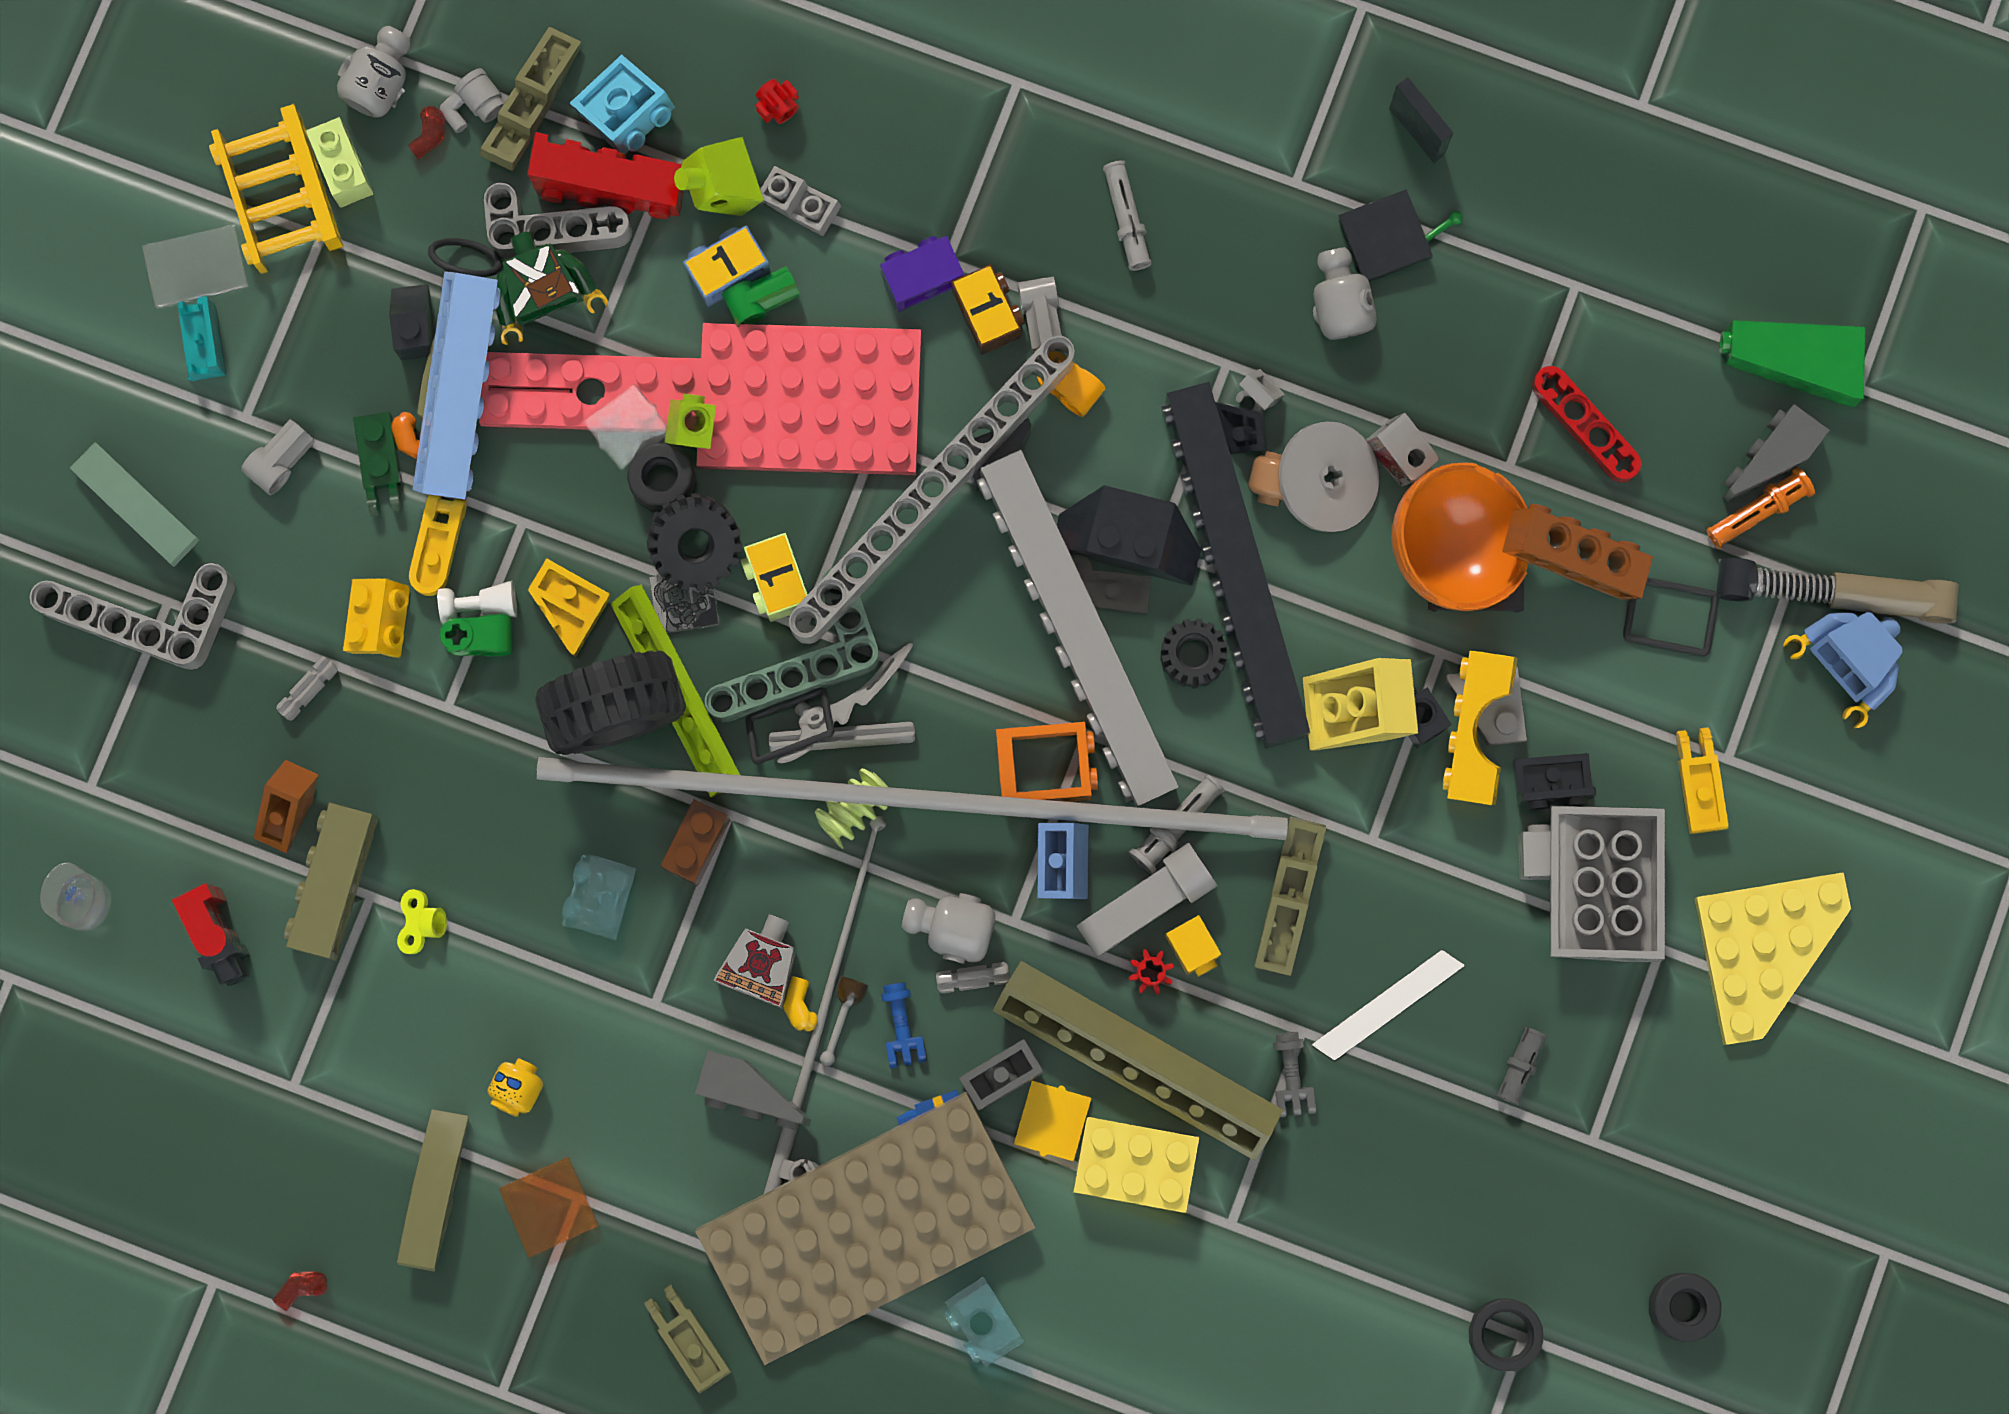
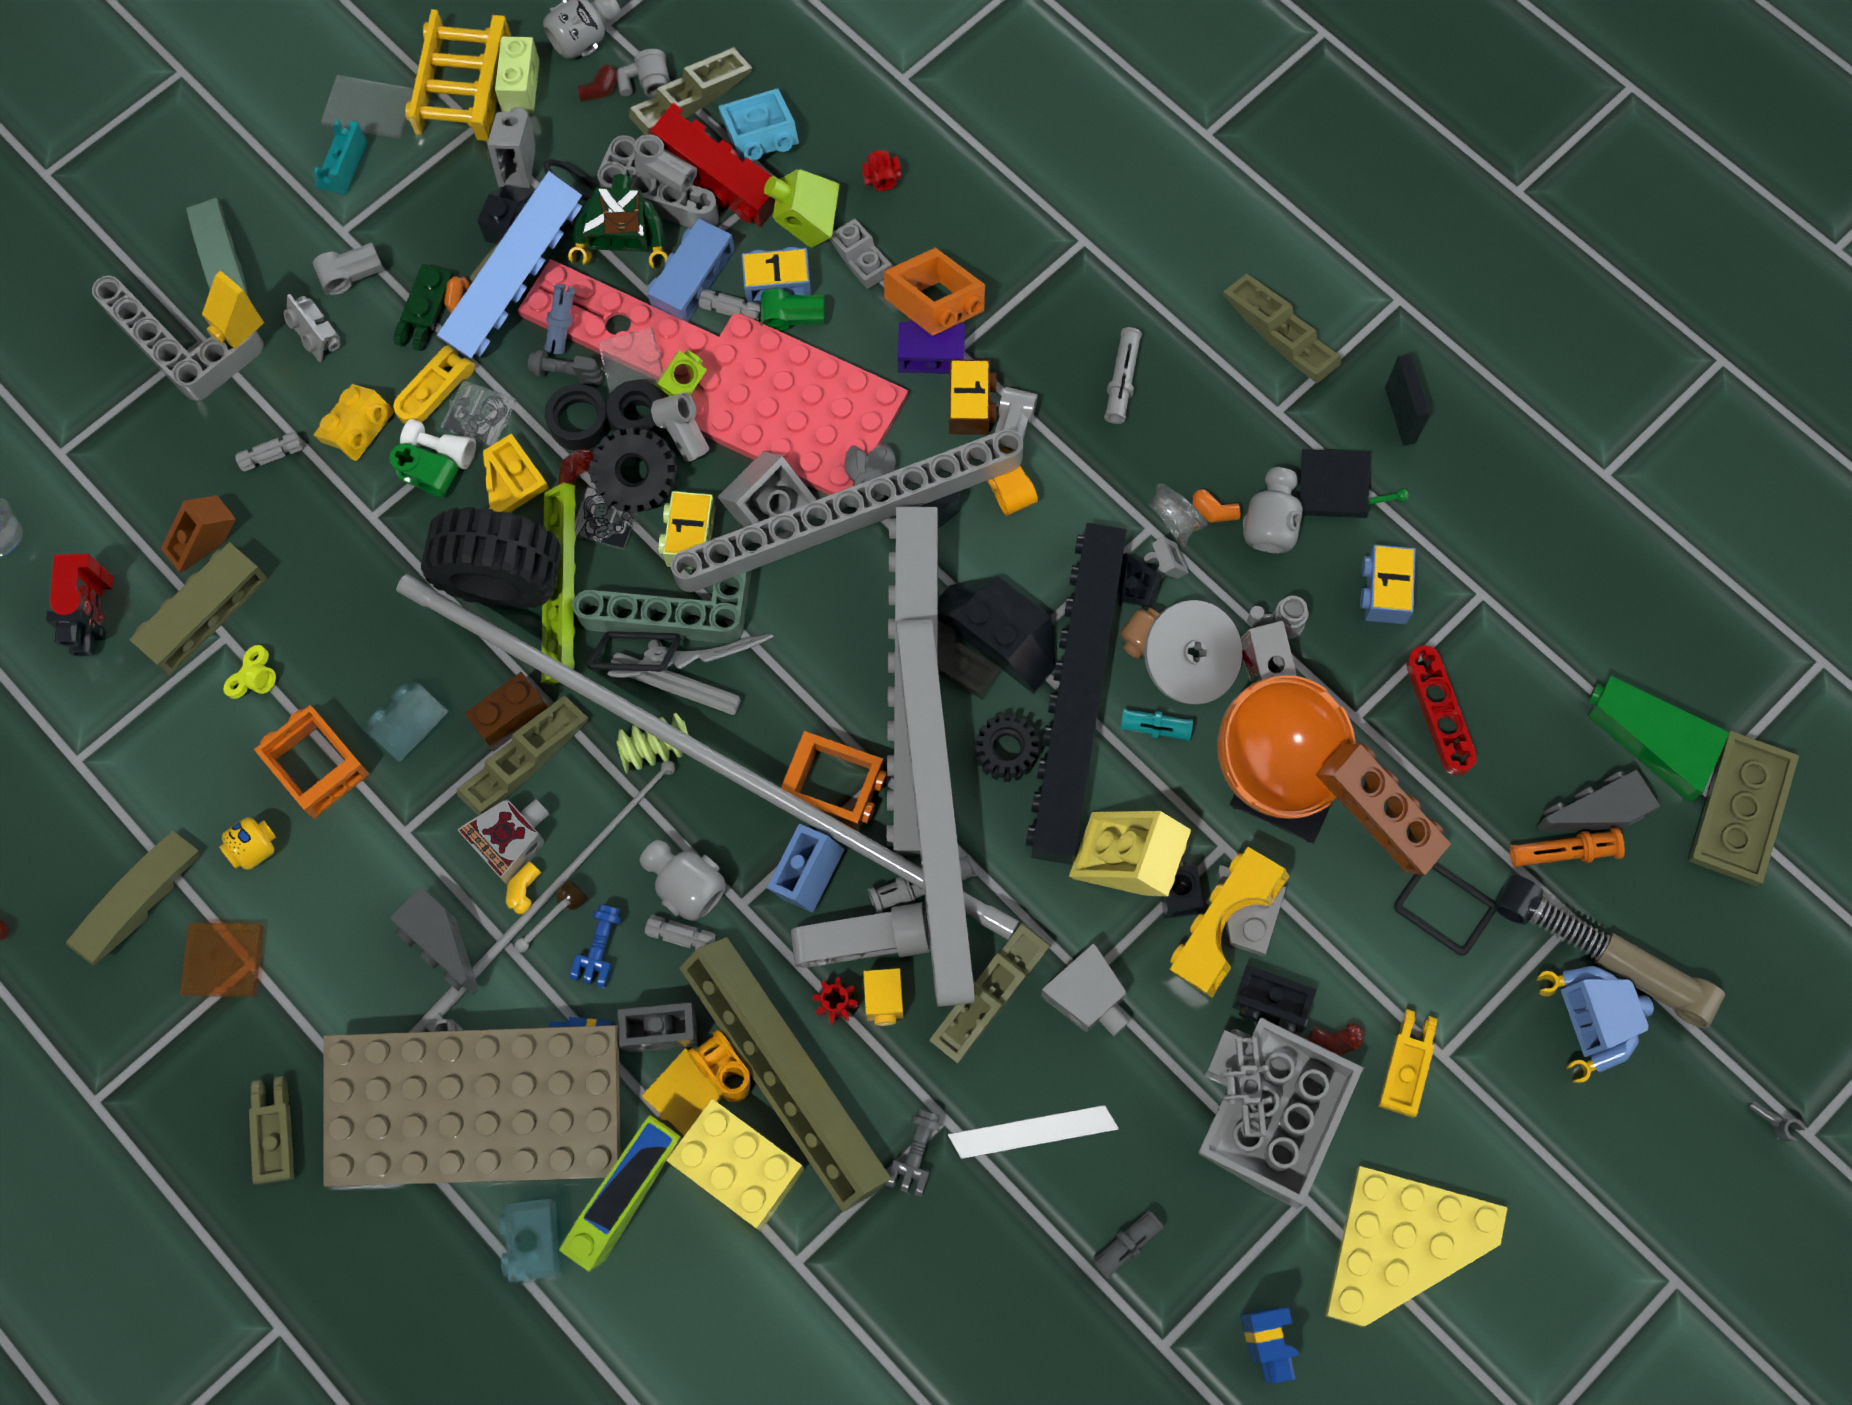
camera: 25 degrees right, 10 degrees down
(201, 569) = (230, 312): none -> yellow slope
(260, 531) = (303, 316): none -> light grey hinge
(381, 247) = (512, 133): none -> light grey torso
(496, 550) = (478, 413): none -> clear piece
(533, 416) = (559, 319): none -> sand blue pin
(559, 202) = (658, 163): none -> light grey piece
(566, 992) = (331, 786): none -> orange window
(583, 456) = (582, 367): none -> dark grey hinge
(591, 484) = (570, 395): none -> black tyre
(625, 562) = (574, 465): none -> clear red arm
(636, 300) = (691, 269): none -> medium blue brick
(693, 318) = (729, 304): none -> light grey axle
(712, 468) = (678, 416): none -> light grey piece
(732, 878) = (523, 756): none -> olive slope
(837, 505) = (765, 491): none -> light grey slope
(872, 199) = (907, 280): none -> orange window
(928, 429) = (865, 467): none -> dark grey plate
(1047, 1241) = (619, 1195): none -> slope
(1075, 1080) = (717, 1062): none -> light orange piece
(1162, 751) = (935, 814): none -> light grey beam
(1249, 342) = (1177, 514): none -> clear hat
(1260, 92) = (1281, 328): none -> olive slope
(1280, 319) = (1212, 509): none -> orange arm
(1324, 563) = (1156, 724): none -> teal pin
(1381, 854) = (1088, 993): none -> light grey torso
(1401, 397) = (1291, 610): none -> light grey piece
(1483, 319) = (1389, 584): none -> brick
(1570, 886) = (1245, 1098): none -> light grey piece
(1629, 792) = (1340, 1042): none -> clear red arm
(1684, 1094) = (1267, 1343): none -> blue hips
(1906, 393) = (1744, 809): none -> olive plate

